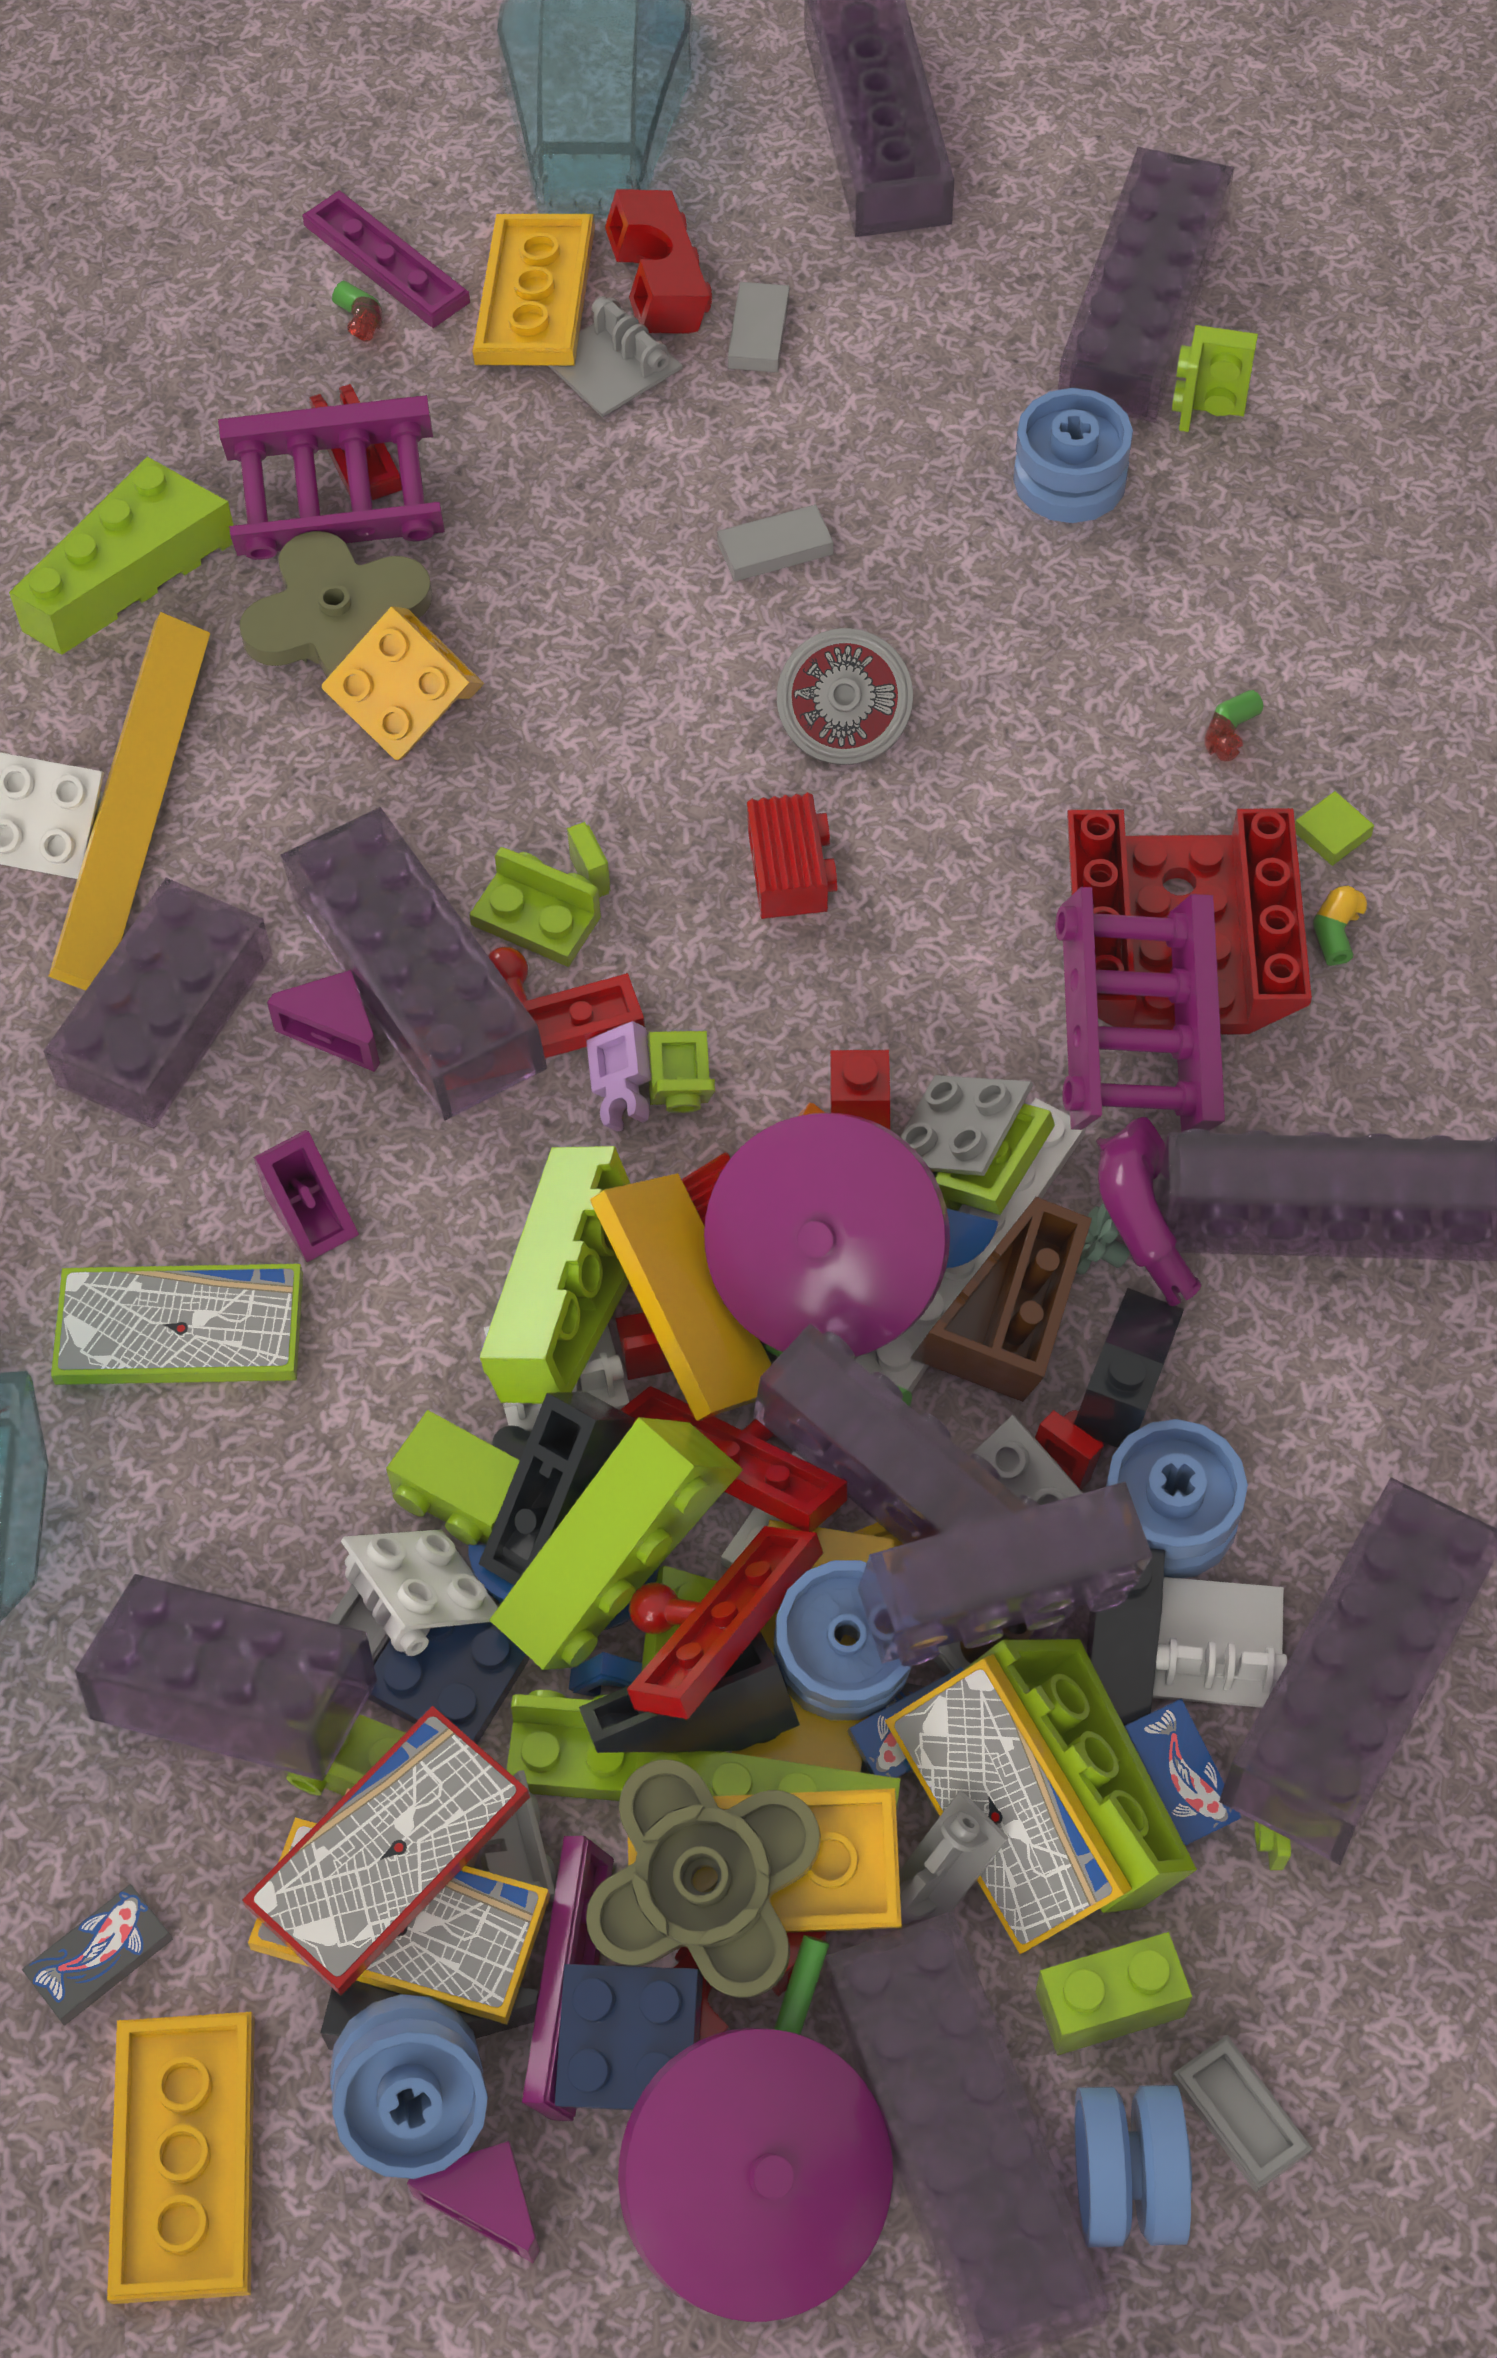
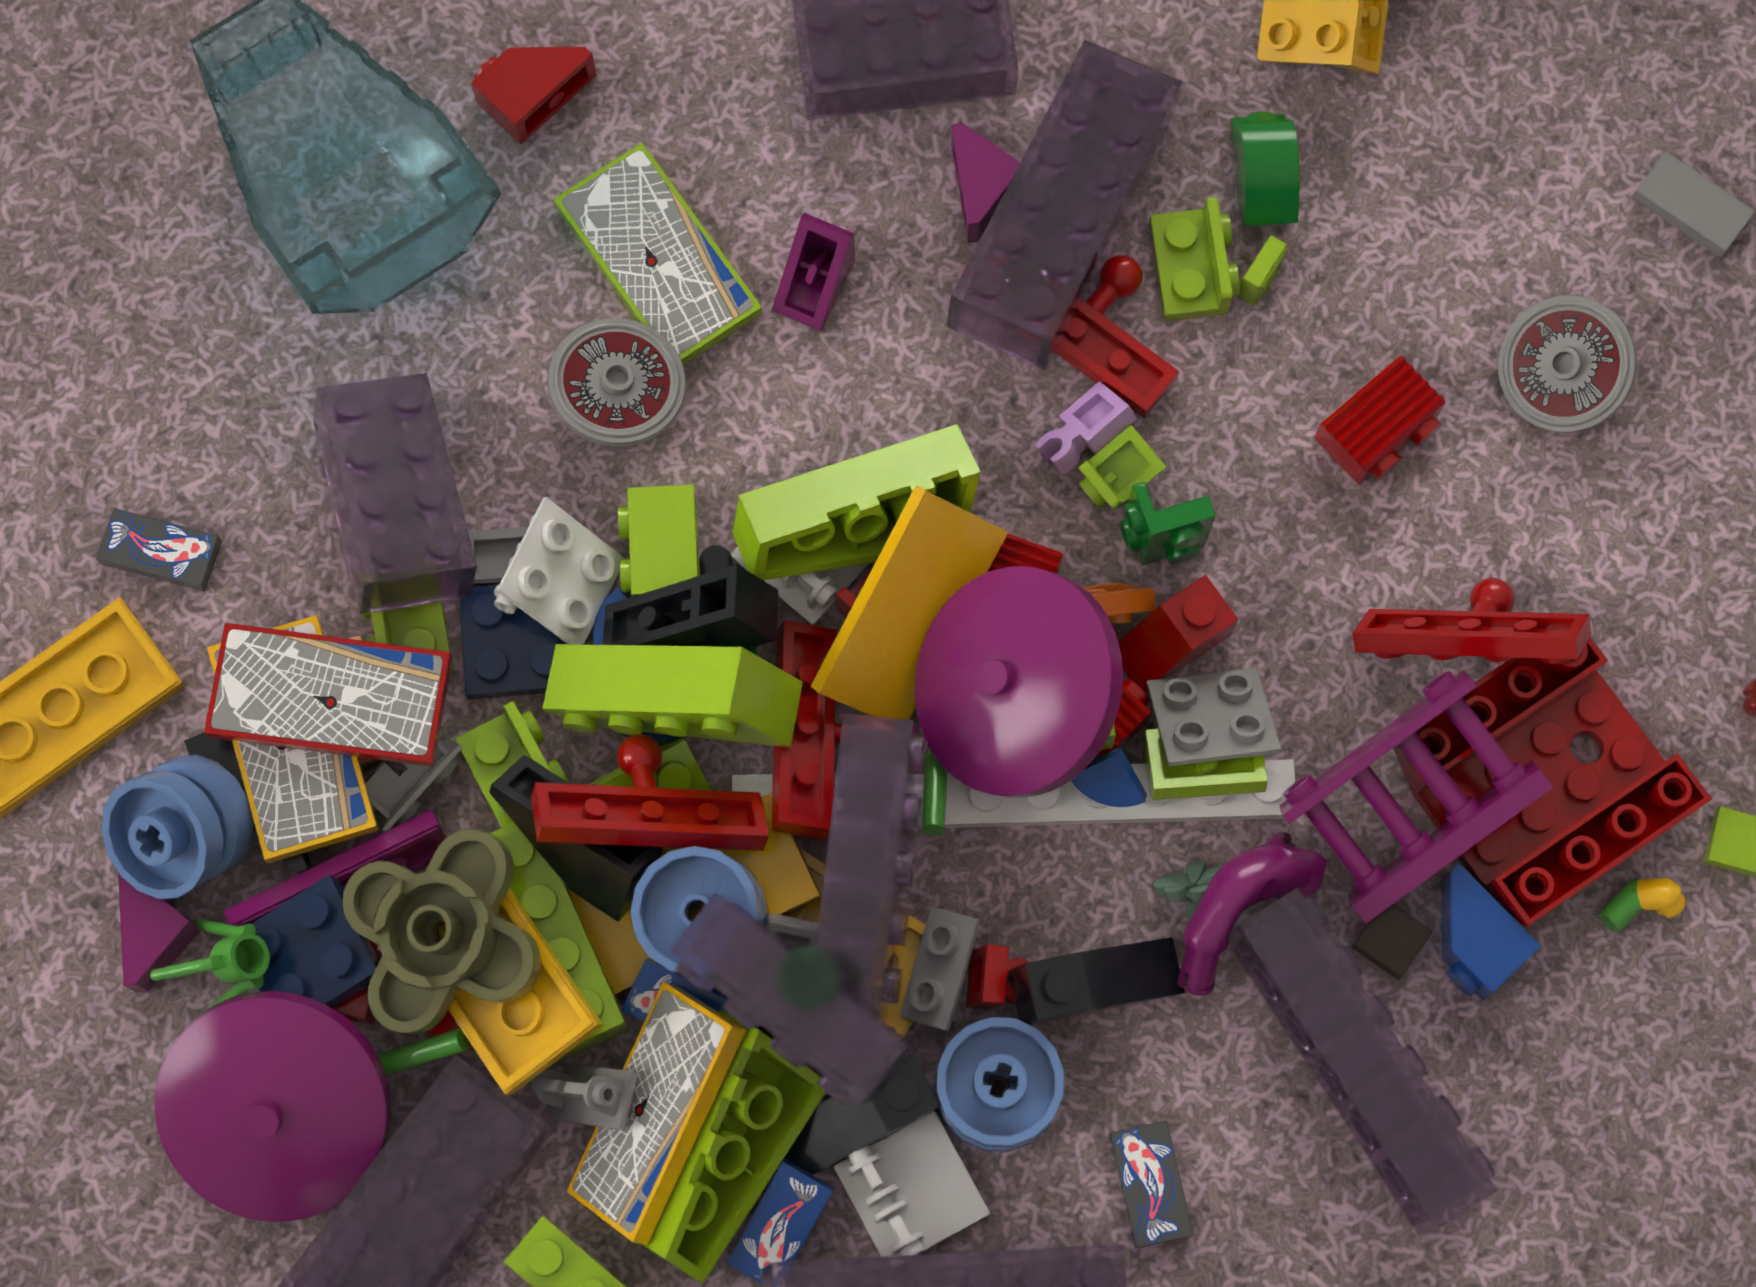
camera: 55 degrees right, 15 degrees up
(274, 1422) = (616, 382): none -> light grey shield
(505, 797) = (1266, 168): none -> green brick
(591, 2098) = (234, 959): none -> bright green plant
(603, 1670) = (581, 756): blue tile -> none
(757, 1069) = (1165, 533): none -> green bracket
(1007, 1519) = (808, 977): none -> clear green tile
(1012, 1307) = (1082, 857): reddish brown wedge -> none
(1028, 885) = (1484, 632): none -> red plate
(1249, 1112) = (1392, 940): none -> dark brown tile
(1289, 1051) = (1479, 936): none -> blue slope
(1340, 1439) = (1151, 1184): none -> tile

